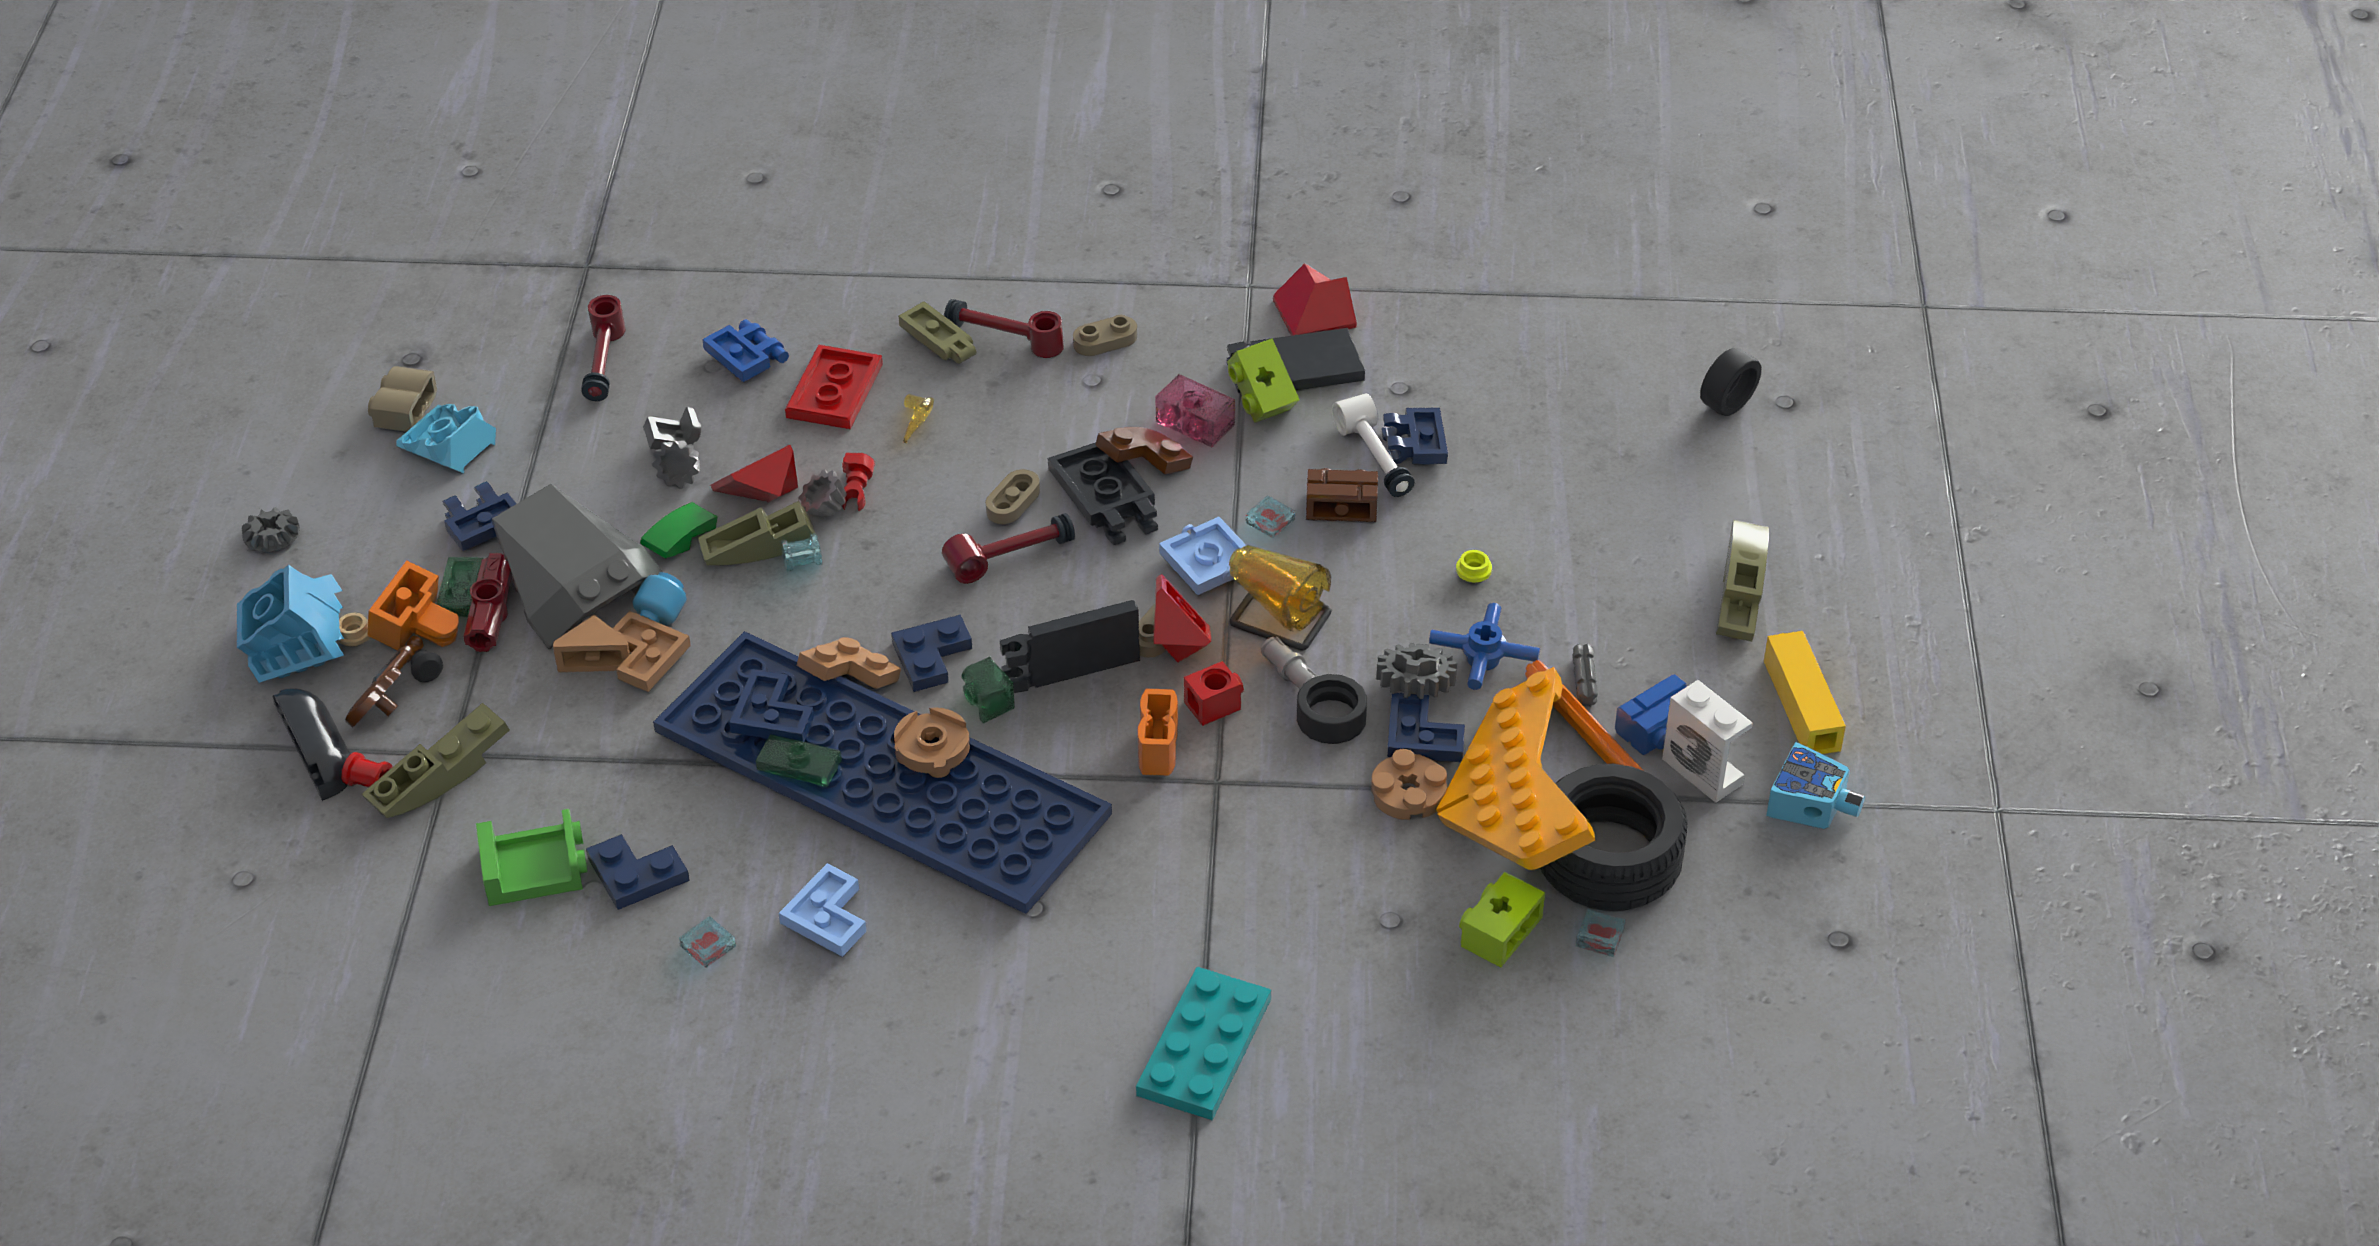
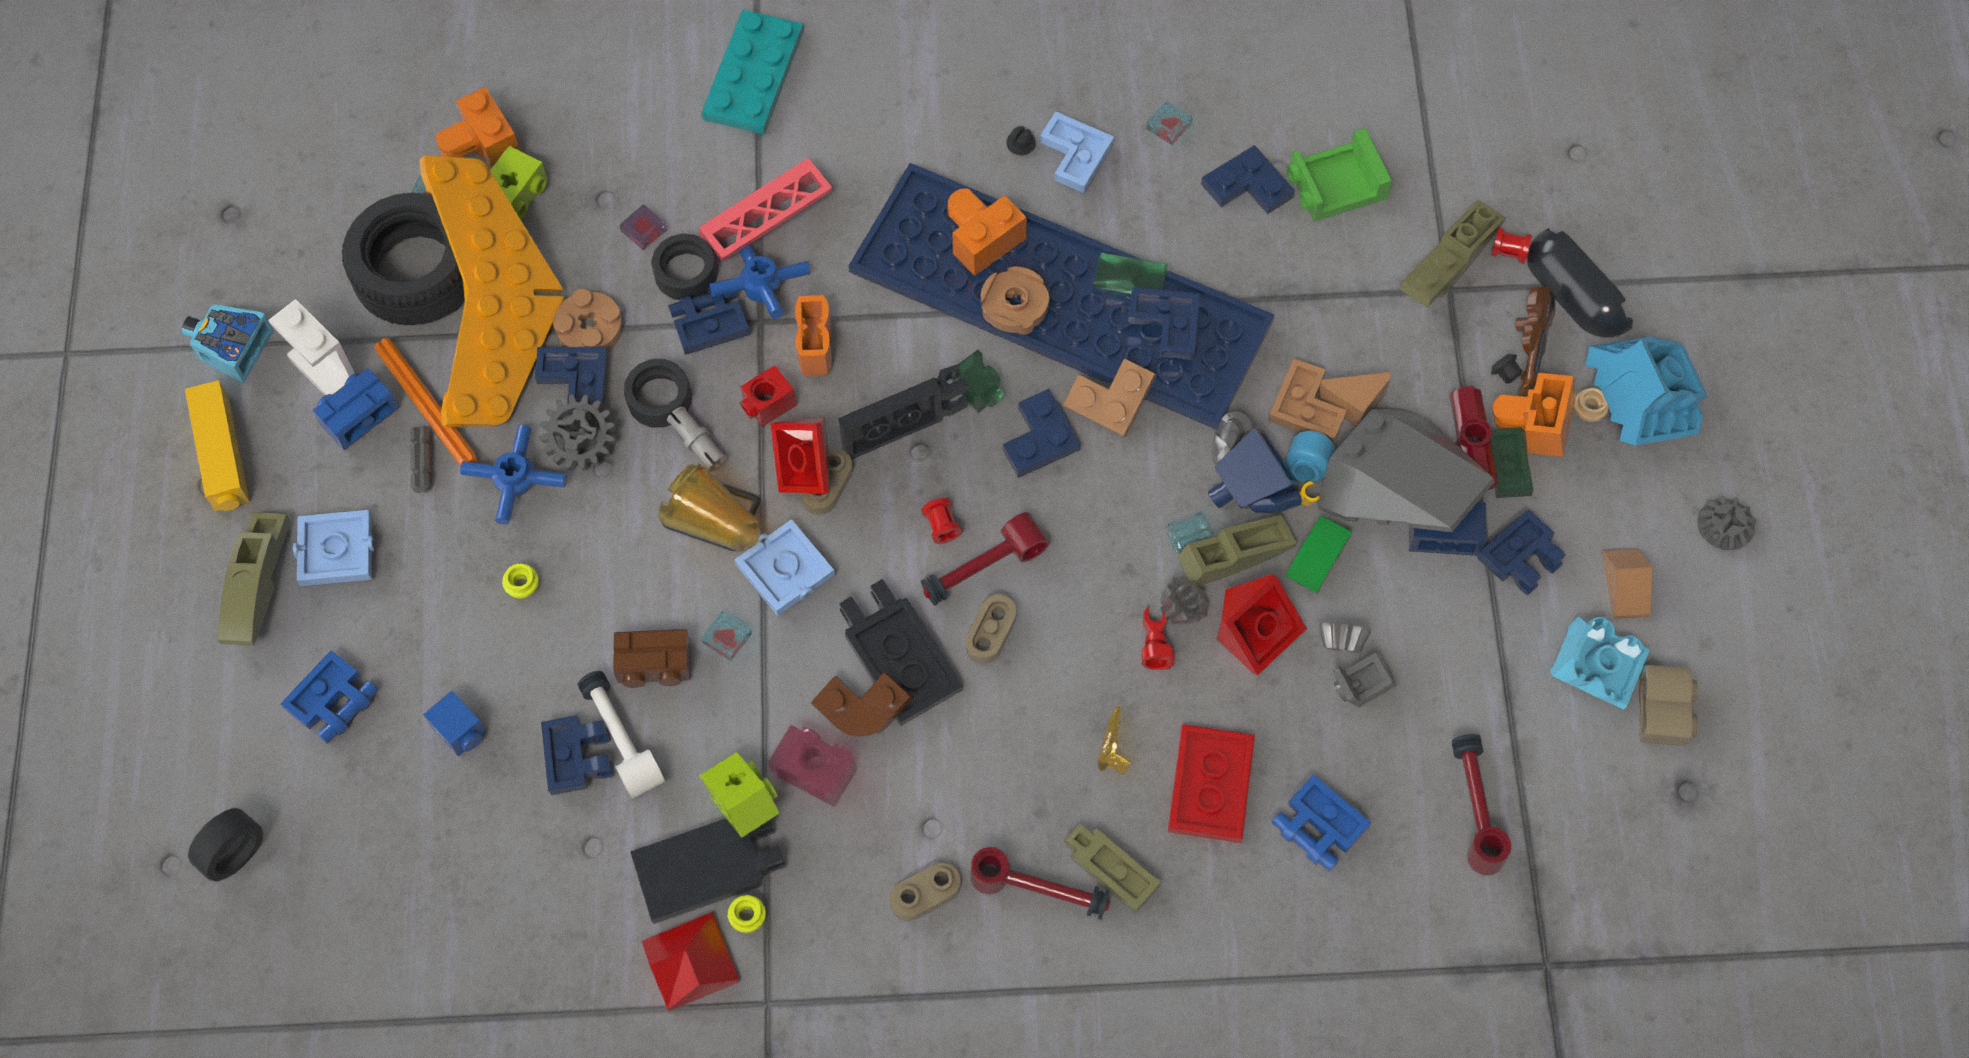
camera: 175 degrees right, 20 degrees up
(388, 495) = (1628, 583): none -> medium nougat slope
(722, 580) = (1253, 469): none -> dark blue torso
(889, 932) = (1020, 141): none -> black piece
(951, 799) = (983, 230): none -> orange brick
(1045, 579) = (941, 520): none -> red bush
(1209, 871) = (763, 203): none -> coral fence
(1216, 809) = (760, 280): none -> blue bar
(1263, 327) = (743, 903): none -> neon yellow plate
(1270, 765) = (711, 326): none -> dark blue plate
(1298, 847) = (680, 245): none -> black tyre
(1345, 879) = (643, 227): none -> clear purple tile
(1530, 460) = (455, 724): none -> blue brick
(1539, 981) = (480, 131): none -> orange brick
(1660, 497) = (321, 690): none -> blue plate
(1665, 602) = (334, 548): none -> light blue plate

